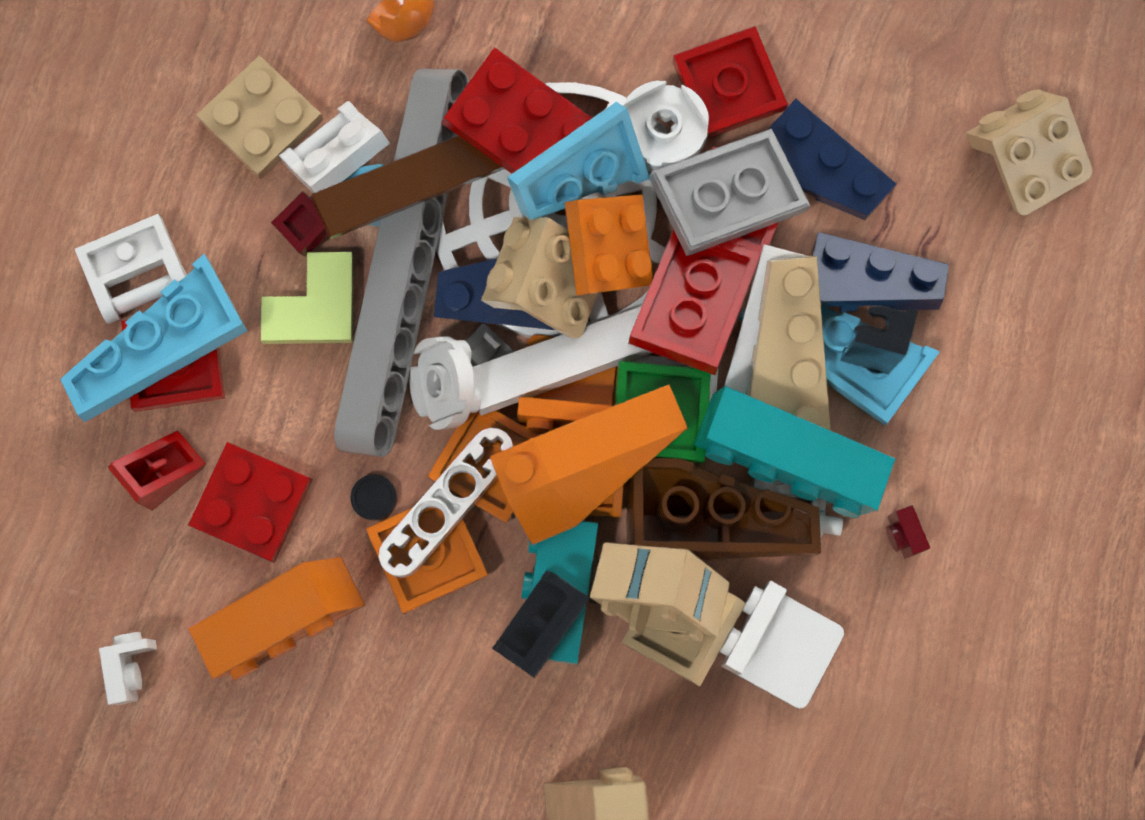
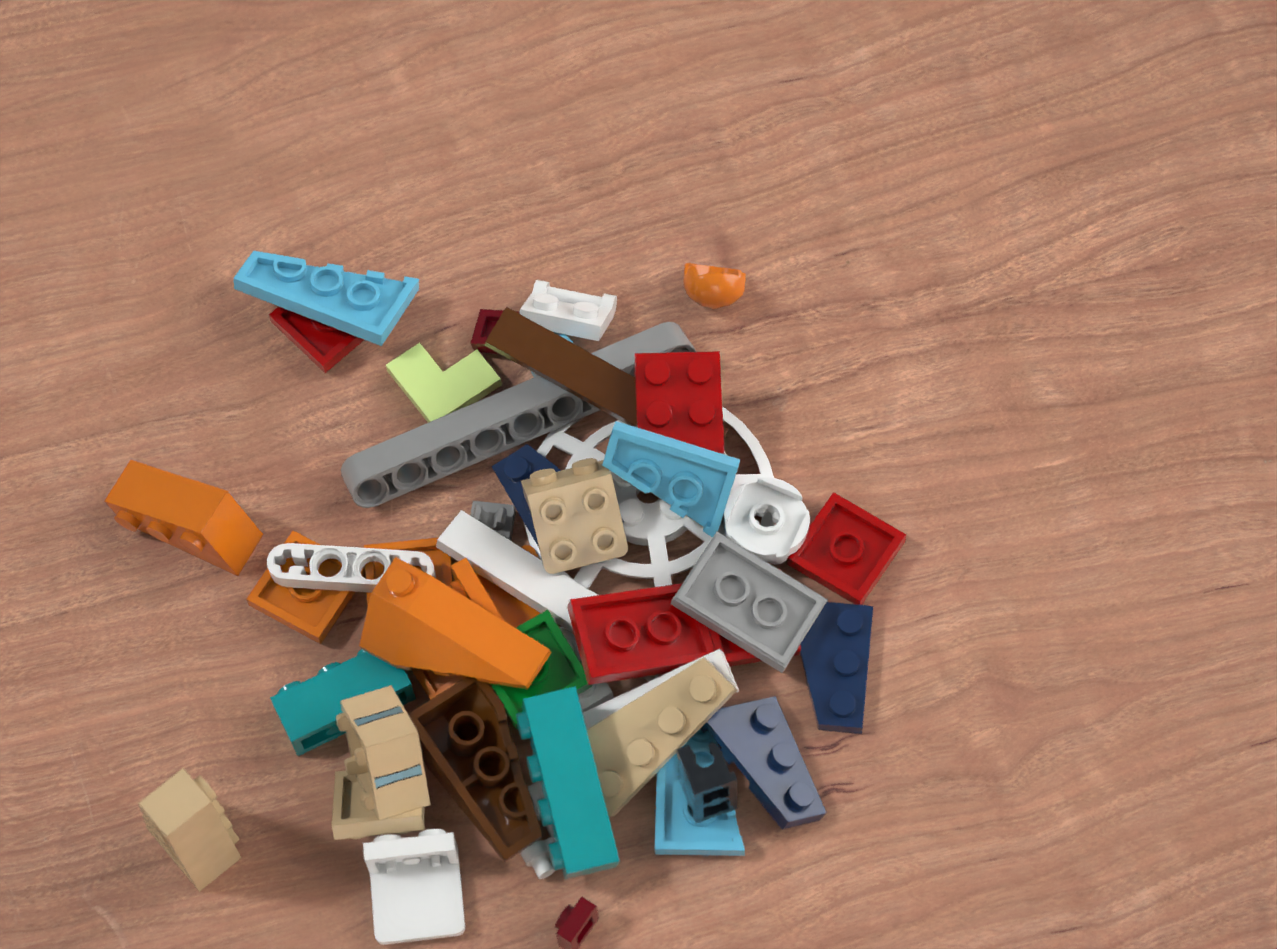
camera: 60 degrees right, 15 degrees down
(120, 674) = (70, 439): white bracket -> none
(124, 257) = (380, 233): white plate -> none
(157, 469) = (234, 363): red slope -> none
(250, 502) = (258, 443): red plate -> none
(259, 117) = (558, 248): tan plate -> none
(373, 497) = (324, 524): black piece -> none
(444, 382) = (441, 502): white plate -> none
(541, 623) = (299, 693): black hinge -> none
(609, 243) = (633, 538): orange plate -> none
(1034, 149) = (973, 815): tan bracket -> none

